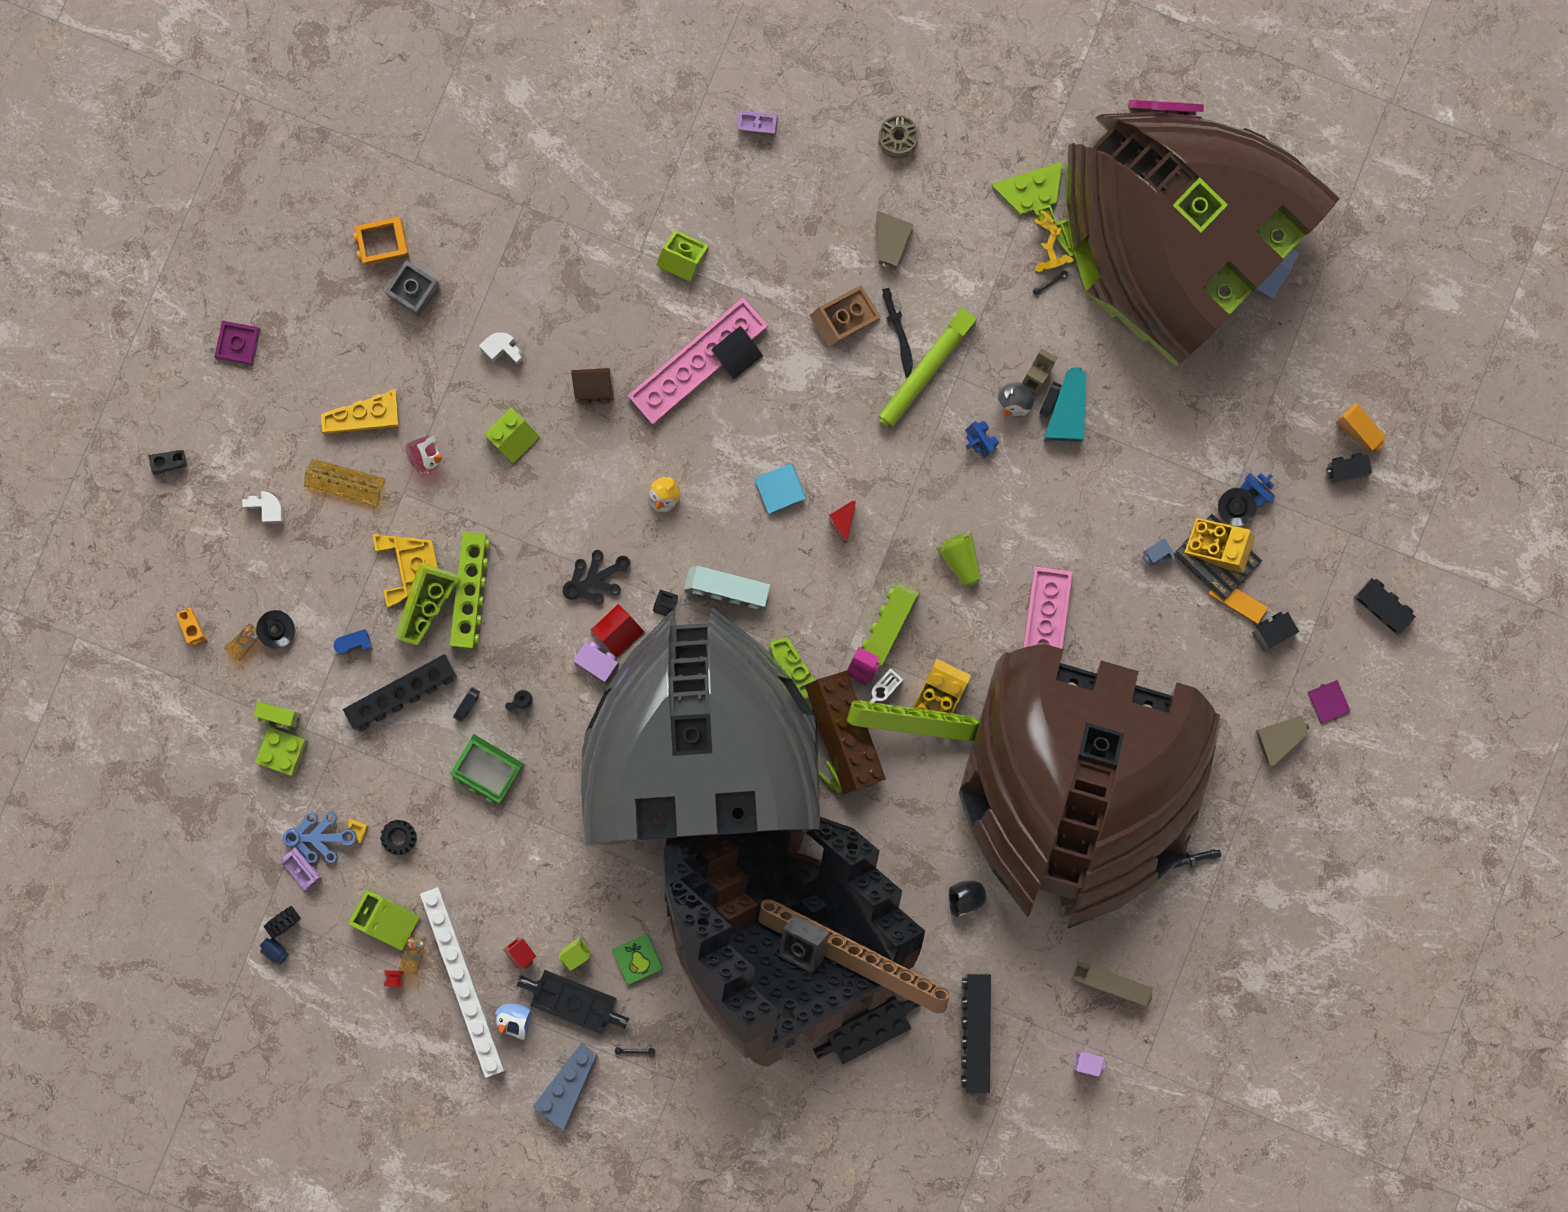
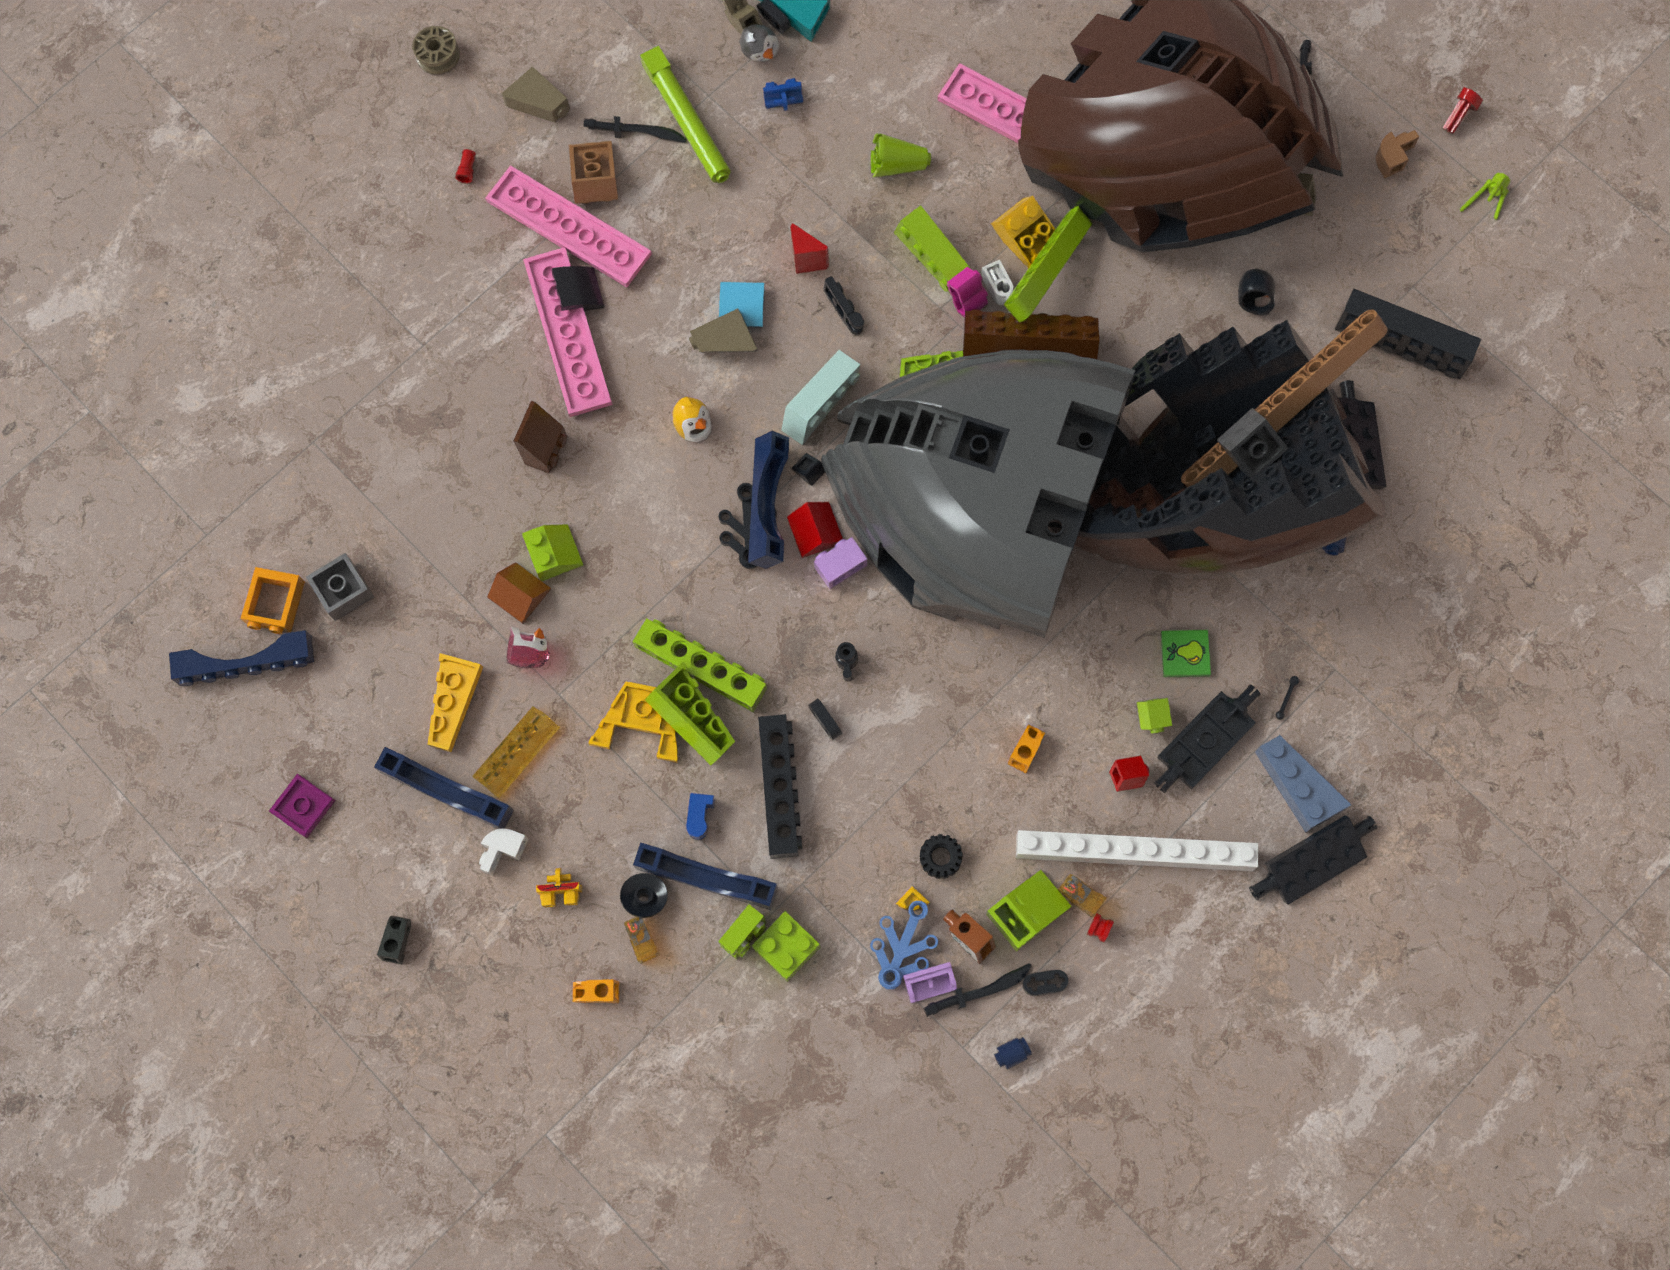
camera: 65 degrees left, 10 degrees down
(249, 558) = (548, 891): none -> yellow hips
(282, 922) = (984, 1027): black tyre -> none
(292, 443) = (443, 789): none -> dark blue arch
(307, 209) = (288, 650): none -> dark blue arch
(310, 685) = (705, 877): none -> dark blue arch
(324, 923) = (1003, 983): none -> black sword
(340, 951) = (1046, 988): none -> black beam
(344, 891) = (976, 941): none -> dark orange torso
(469, 424) = (517, 591): none -> dark orange slope
(486, 769) = (906, 726): window -> none
(499, 343) = (447, 522): white brick -> none
(509, 867) = (1026, 748): none -> light orange leg
(513, 1019) = (1202, 810): piece -> none
(513, 1120) = (1315, 860): none -> black plate
(586, 596) = (765, 541): none -> dark blue arch
(682, 255) = (449, 302): lime slope -> none
(745, 488) = (723, 334): none -> dark tan slope
(757, 121) = (348, 172): lavender hinge -> none
(788, 319) = (568, 226): none -> bright pink plate
(801, 213) = (465, 170): none -> red pin
(812, 572) = (844, 307): none -> black hinge
(1089, 1063) = (1481, 239): lavender brick -> none
(1112, 983) = (1402, 189): dark tan slope -> none
(1140, 960) = (1391, 152): none -> medium nougat brick
(1150, 1060) = (1496, 187): none -> lime plant
(1217, 1006) = (1468, 100): none -> red piece

